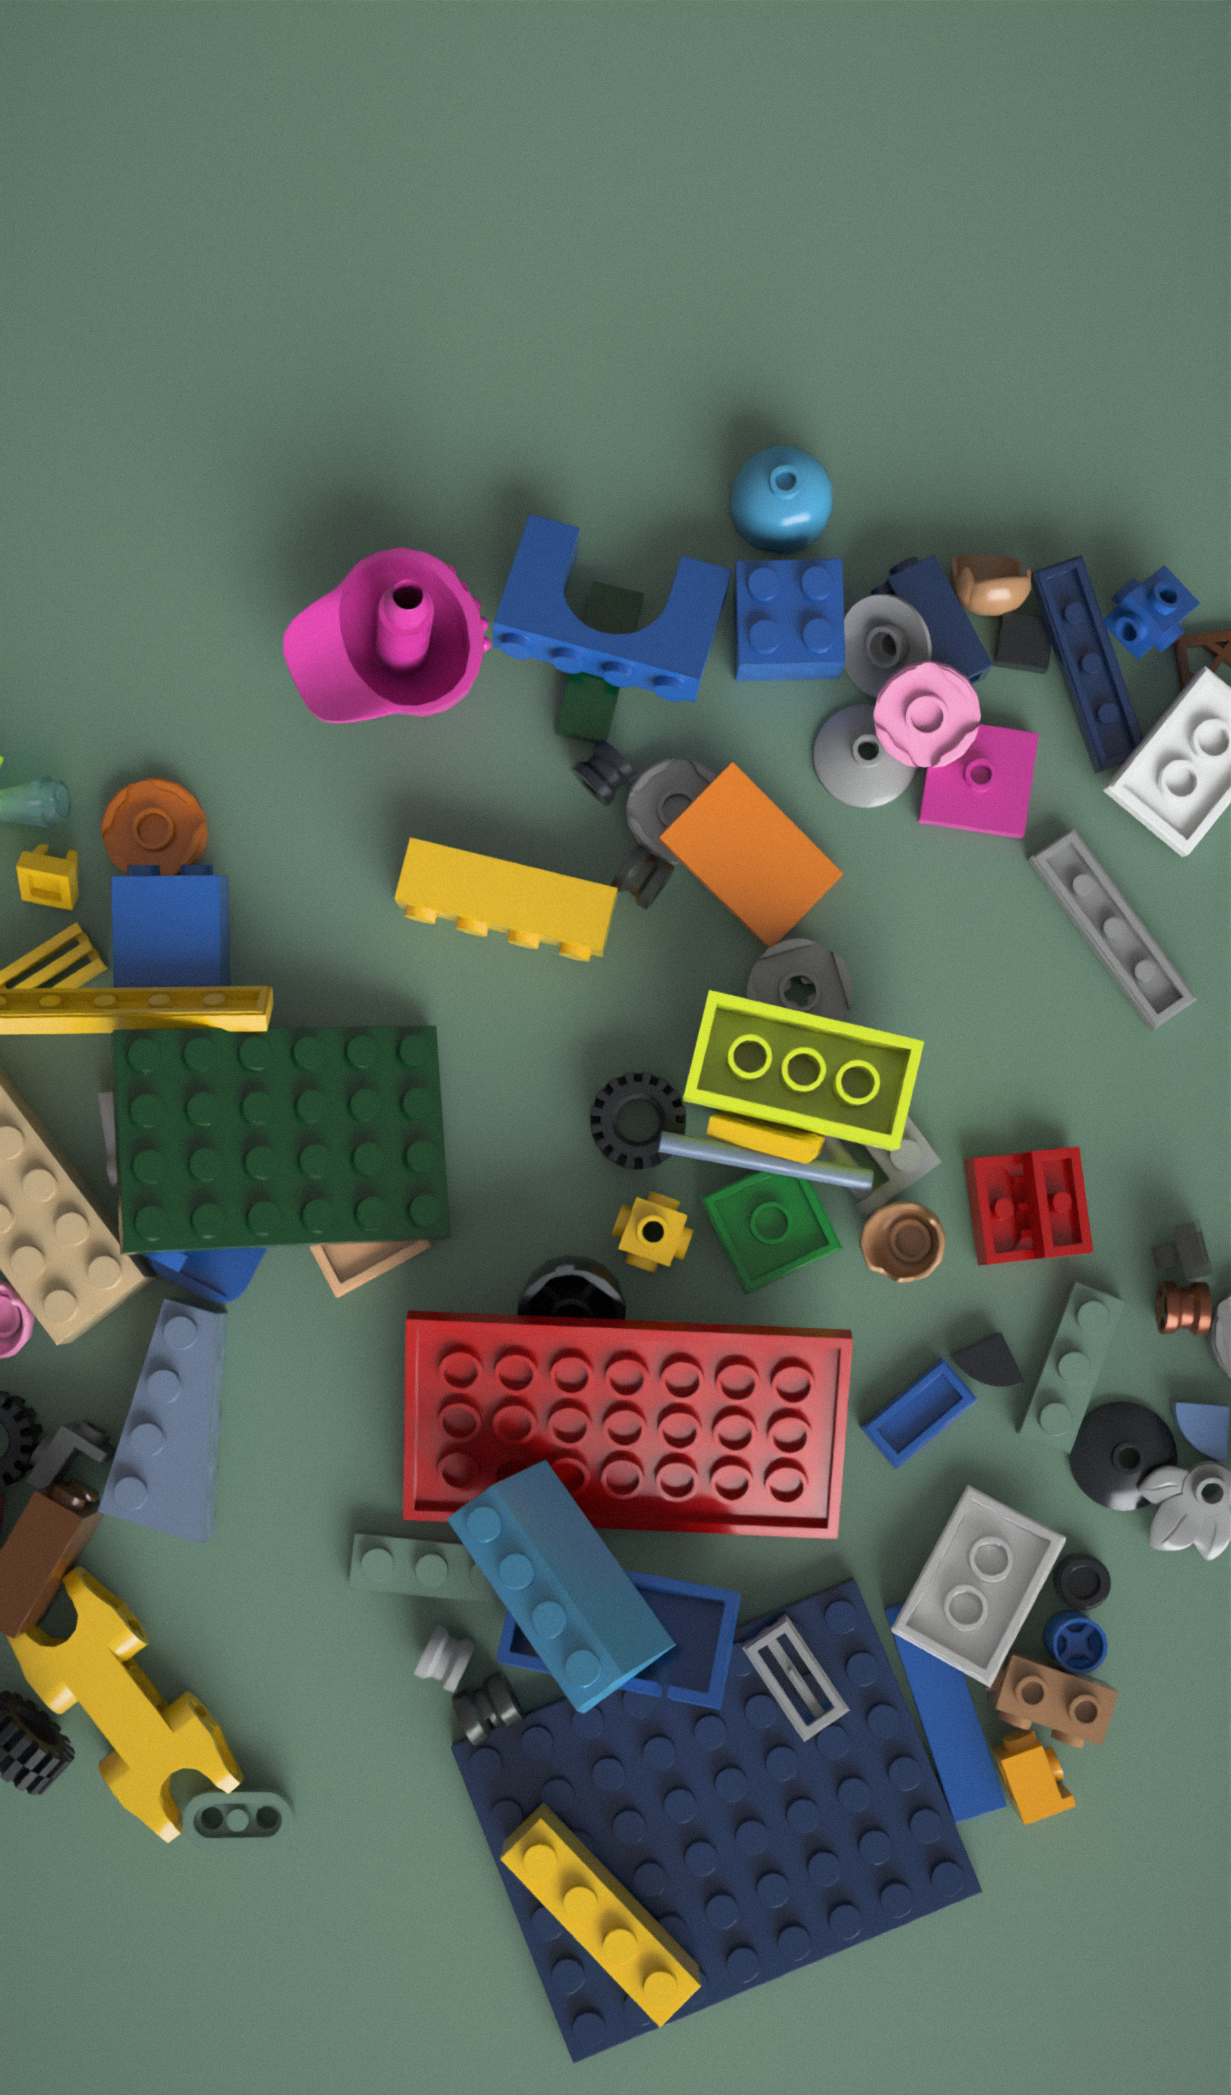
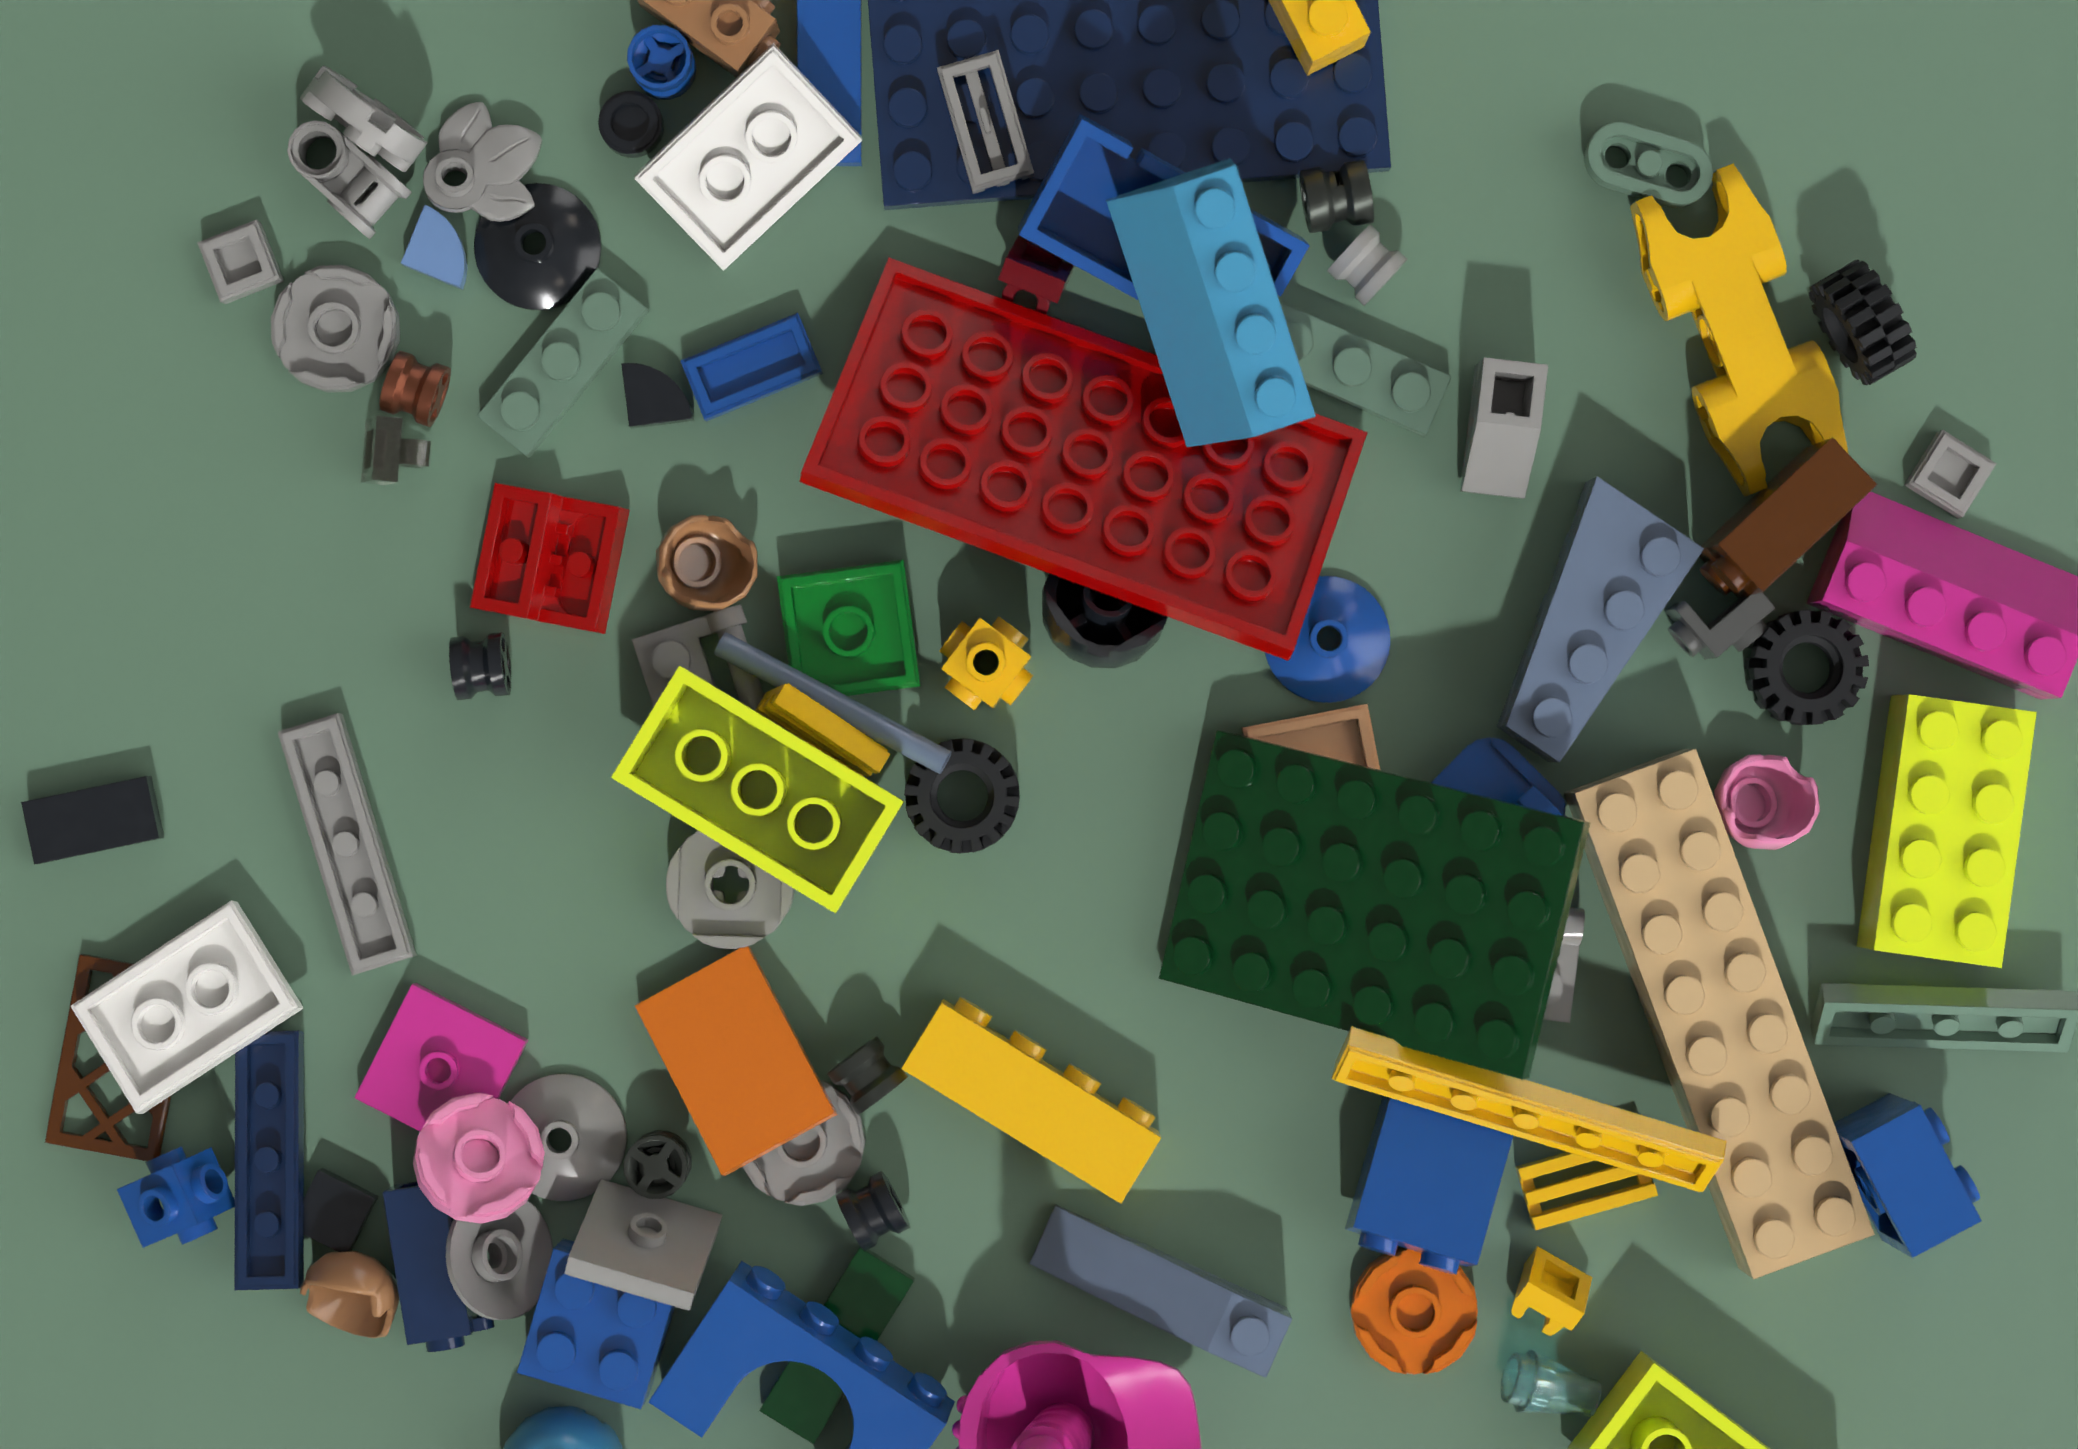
camera: 165 degrees left, 5 degrees up
(292, 1560) = (1503, 427): none -> light grey slope
(354, 782) = (1163, 1290): none -> sand blue slope
(355, 1332) = (1356, 661): none -> blue dish
(714, 1565) = (1035, 271): none -> dark red tile
(775, 688) = (643, 1245): none -> light grey plate
(787, 745) = (651, 1173): none -> pearl dark grey wheel
(1055, 1101) = (480, 666): none -> black wheel

